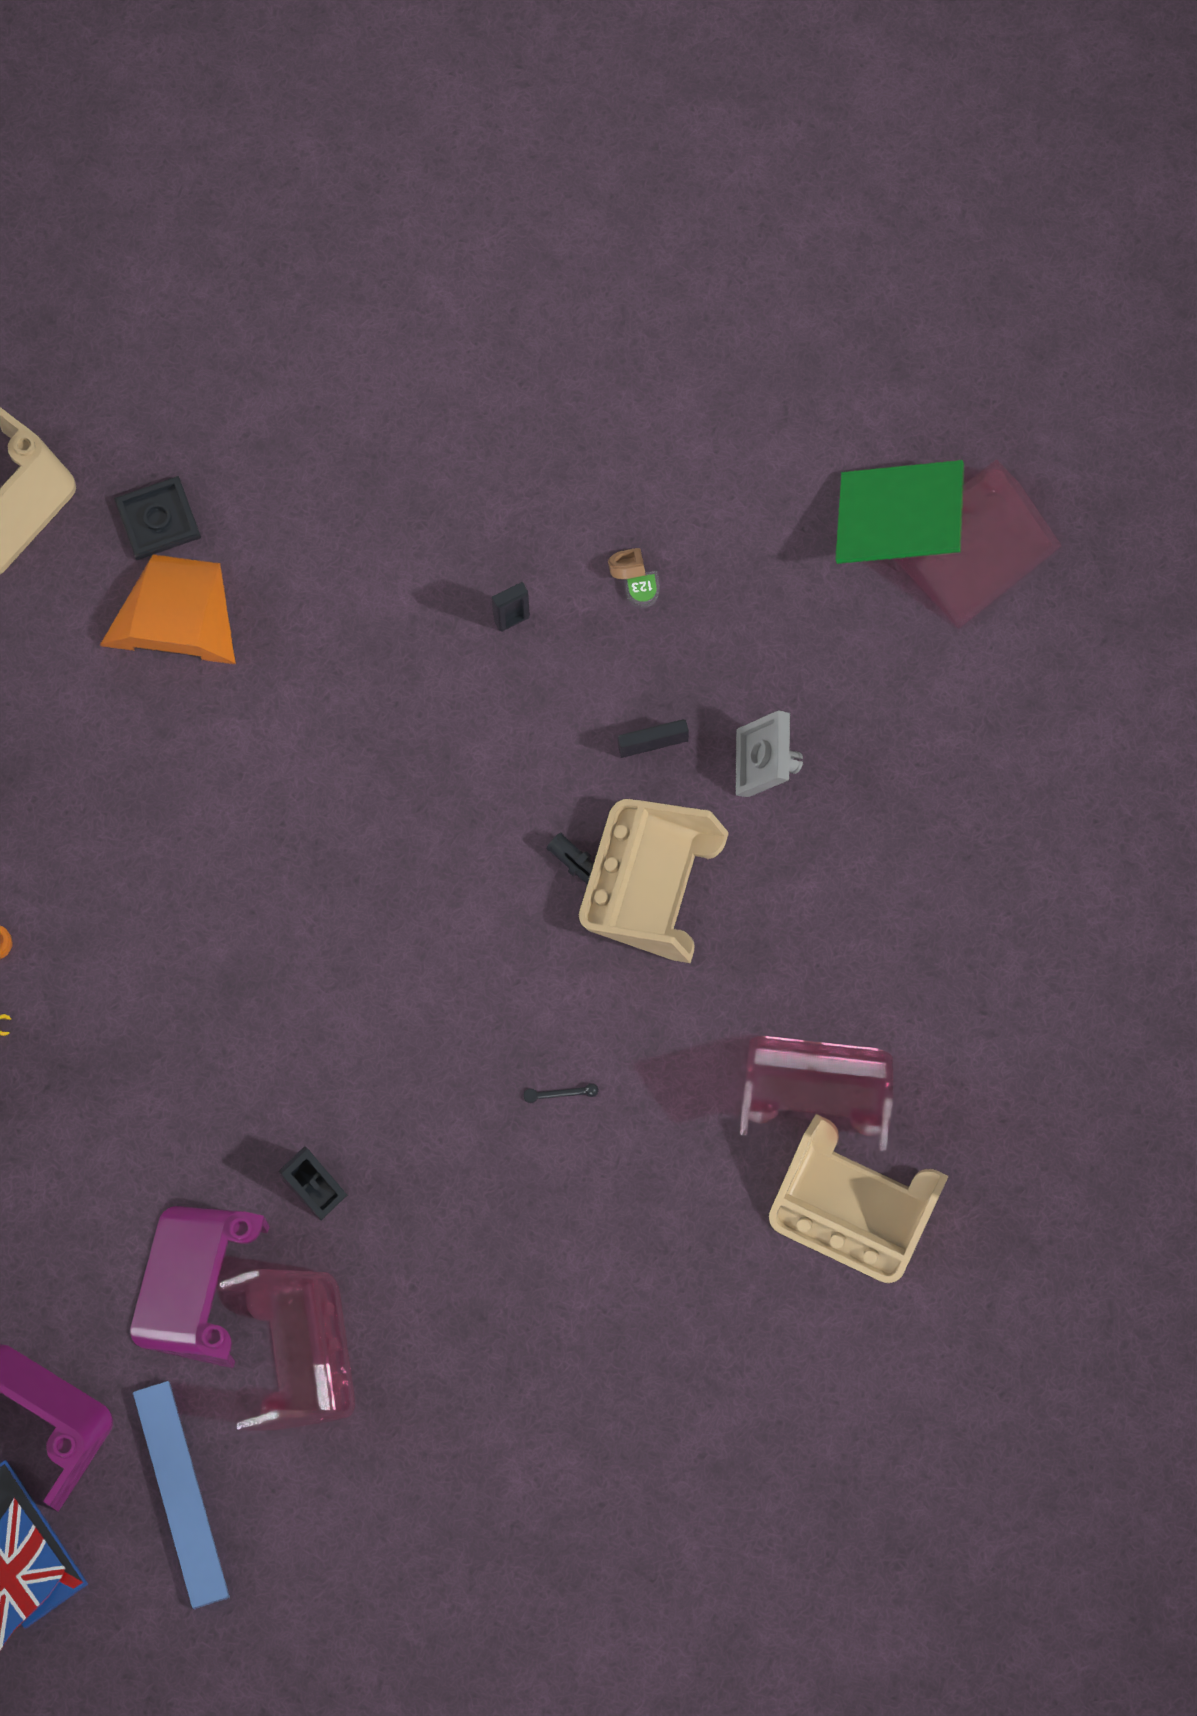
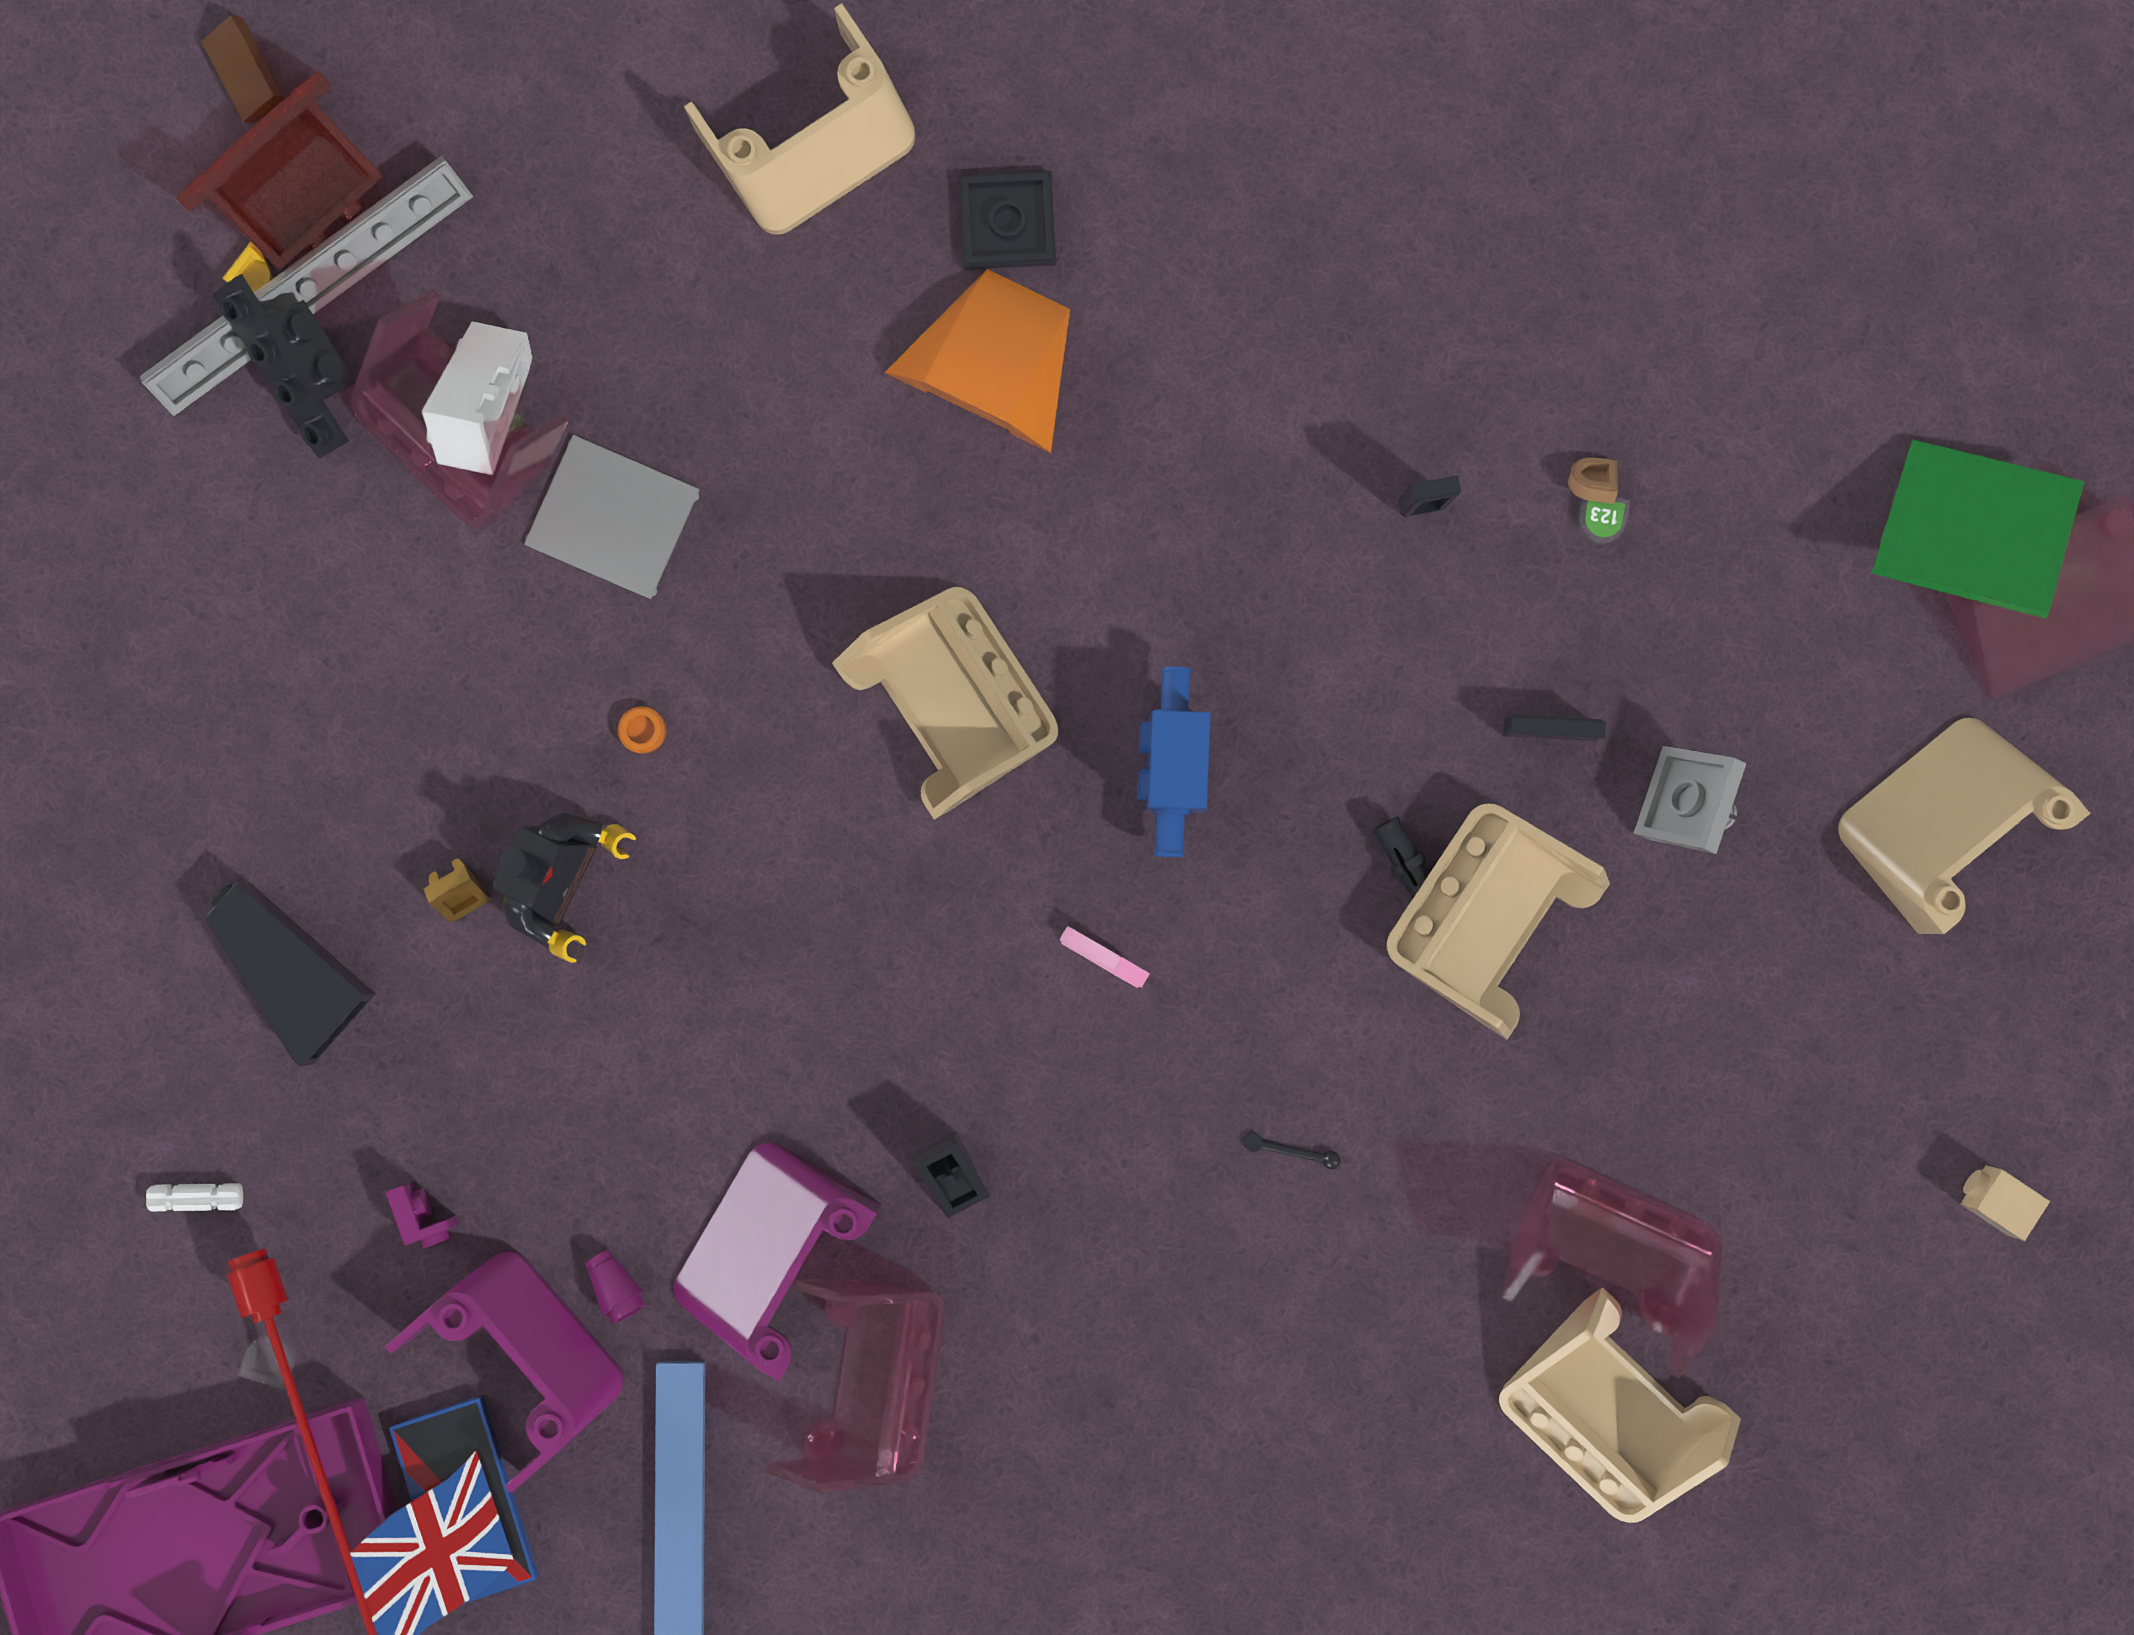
camera: 10 degrees right, 15 degrees up
(86, 1346) = (614, 1288): none -> magenta cone
(213, 845) = (955, 691): none -> tan windscreen
(382, 994) = (1104, 957): none -> bright pink tile
(390, 847) = (1176, 761): none -> blue brick
(945, 709) = (1944, 814): none -> tan windscreen
(1085, 964) = (2003, 1201): none -> tan brick

